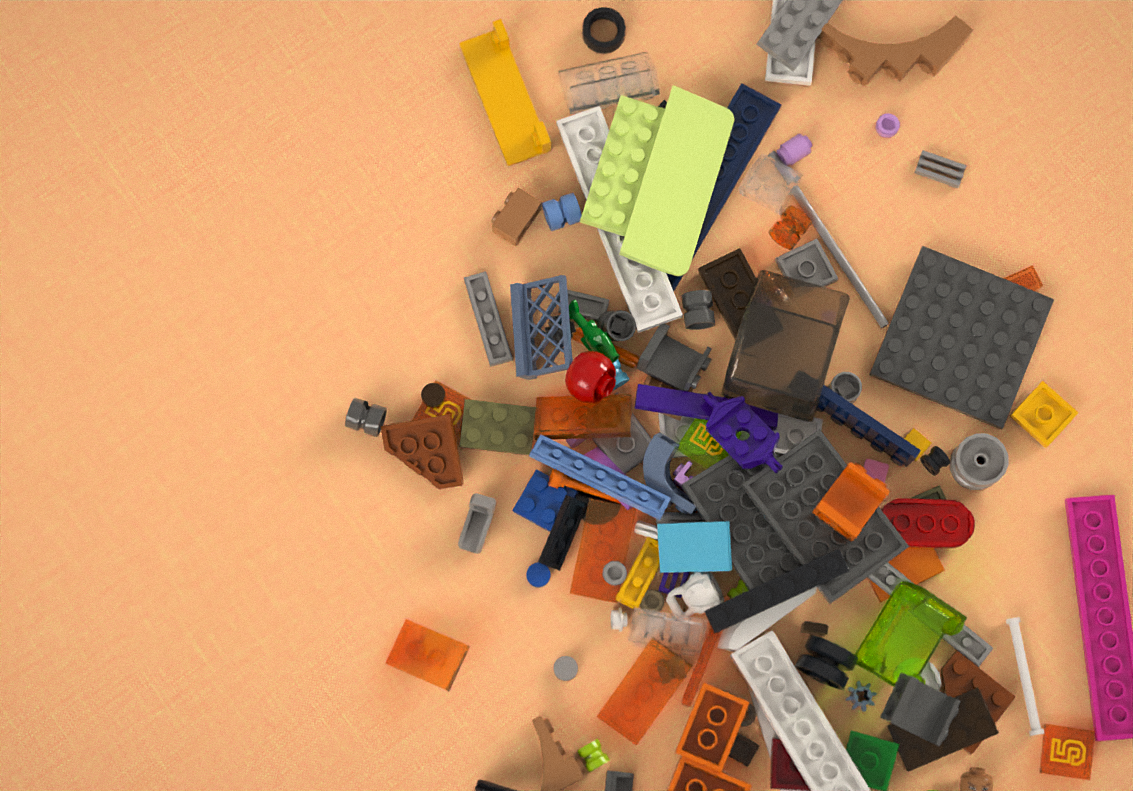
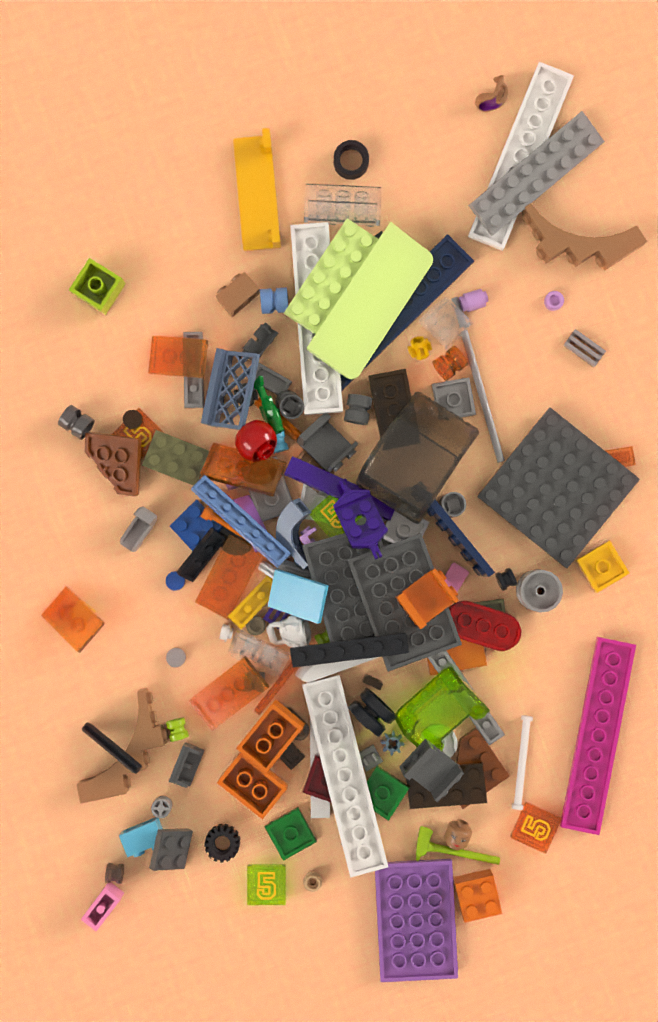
camera: 15 degrees right, 10 degrees up
(348, 251) = (97, 286): none -> lime brick
(466, 307) = (178, 356): none -> clear orange tile
(562, 257) = (264, 336): none -> dark grey hinge
(614, 573) = (232, 597): light grey tile -> none
(749, 220) = (419, 348): none -> yellow gear
(841, 723) = (370, 757): none -> light grey tile
(919, 441) = (496, 560): yellow tile -> none

